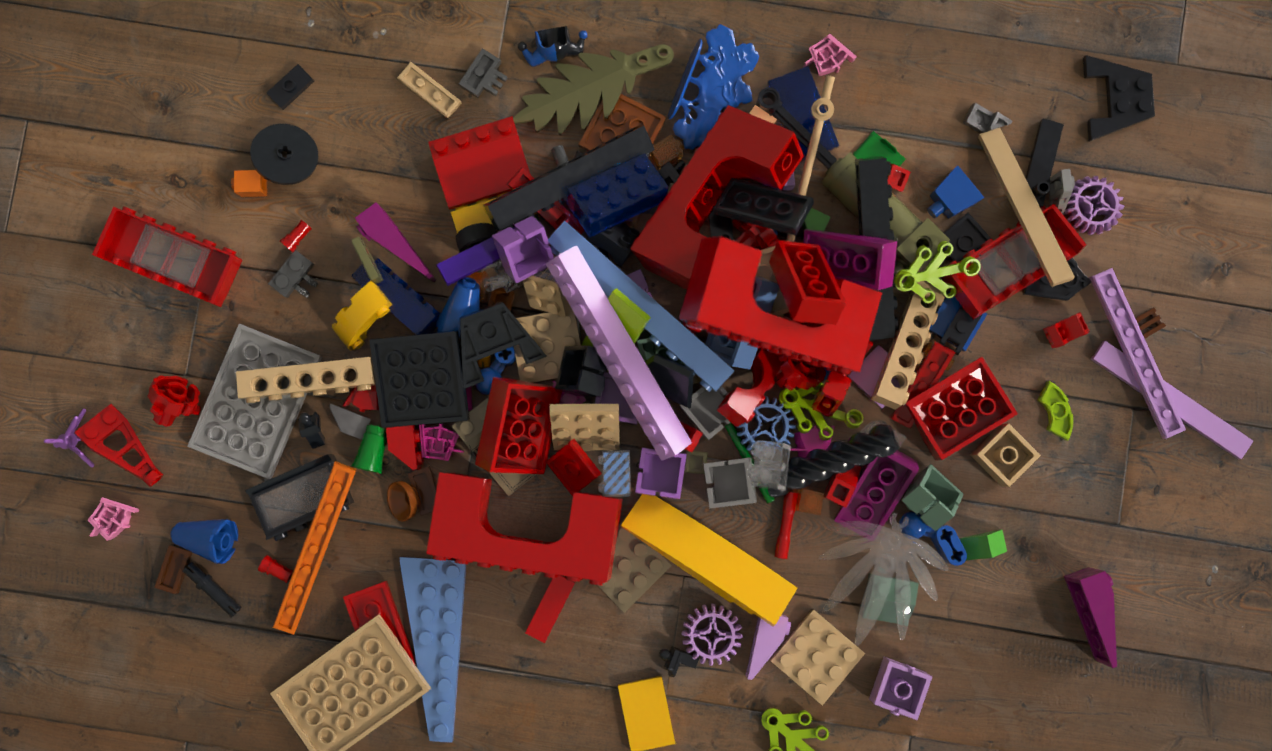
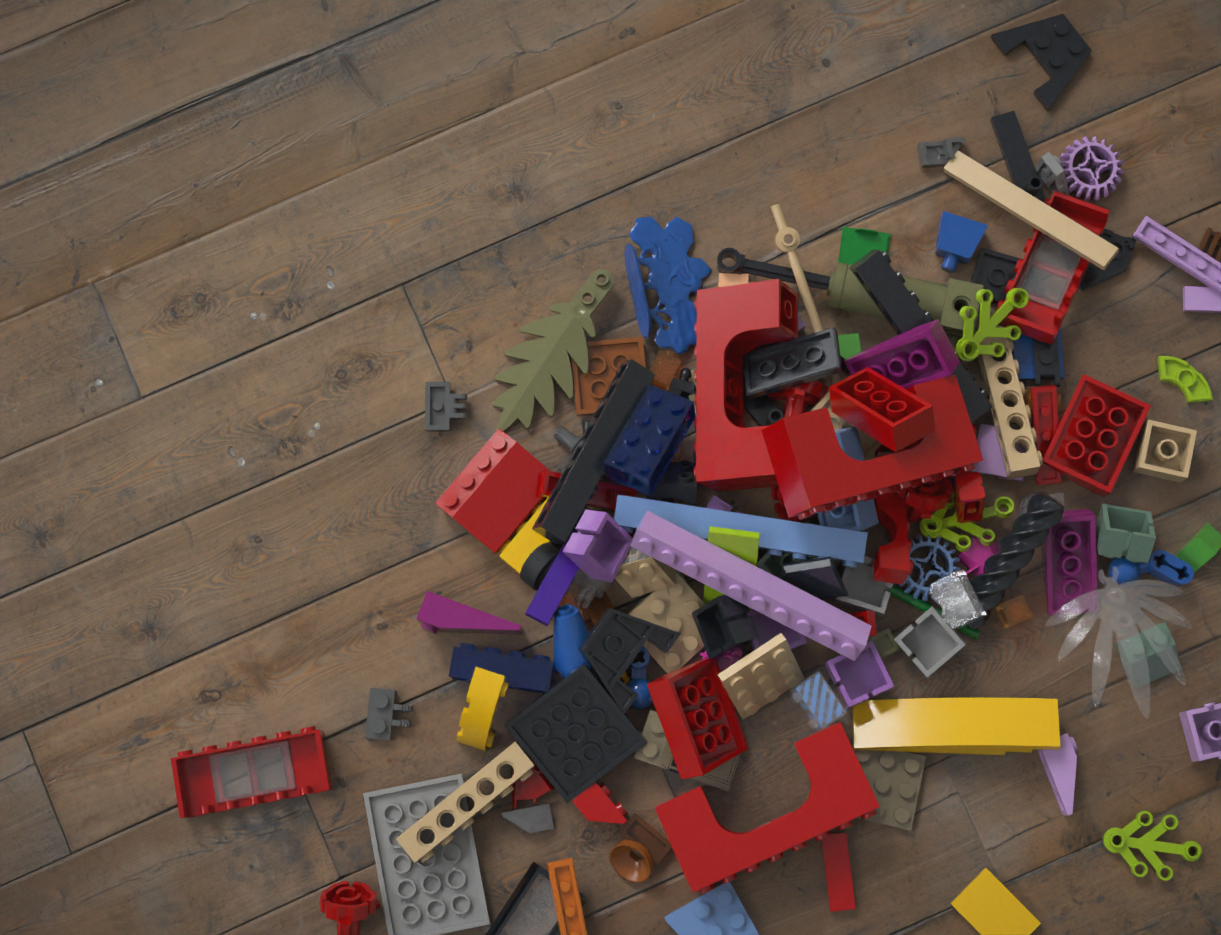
camera: 30 degrees left, 5 degrees down
(249, 184) = (284, 652): orange brick -> none
(268, 149) = (295, 619): black piece -> none
(290, 87) = (262, 535): black plate -> none
(295, 236) = (362, 674): red pin -> none
(311, 429) = (499, 849): black piece -> none
(367, 260) = (457, 650): olive tile -> none
(371, 450) = (570, 831): green plant -> none
(429, 90) = (399, 453): tan tile -> none
(437, 442) = (629, 783): dark pink piece -> none
(553, 46) = (491, 337): black piece -> none
(573, 467) = (773, 723): red tile -> none
(675, 658) = (987, 841): black piece -> none
(722, 635) = (999, 787): lavender gear -> none
(783, 539) = (1013, 662): red piece -> none
(798, 94) = (755, 240): clear blue tile -> none
(817, 656) = (1118, 753): tan plate -> none
(829, 55) = (756, 183): bright pink piece -> none
(842, 486) = (1035, 578): red slope -> none
(898, 178) = (897, 255): red plate -> none
(1066, 330) = (1143, 299): red brick -> none

